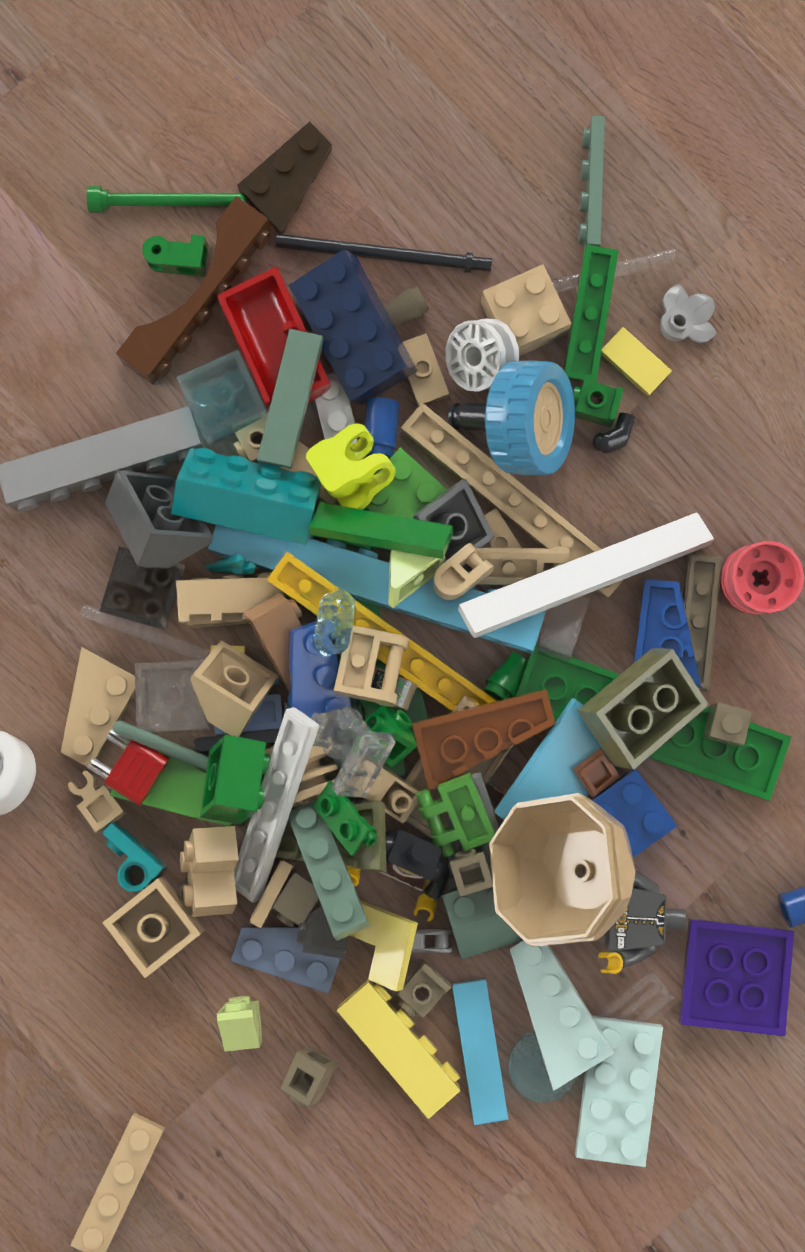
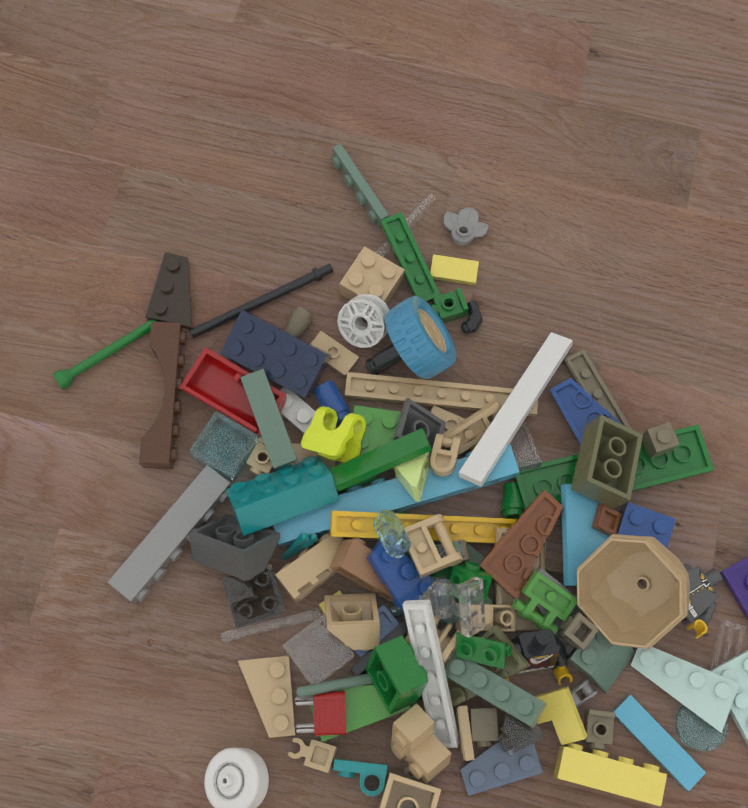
camera: 40 degrees left, 10 degrees down
(177, 257) = (136, 382): green leg -> none
(780, 578) = (625, 336): coral wheel -> none

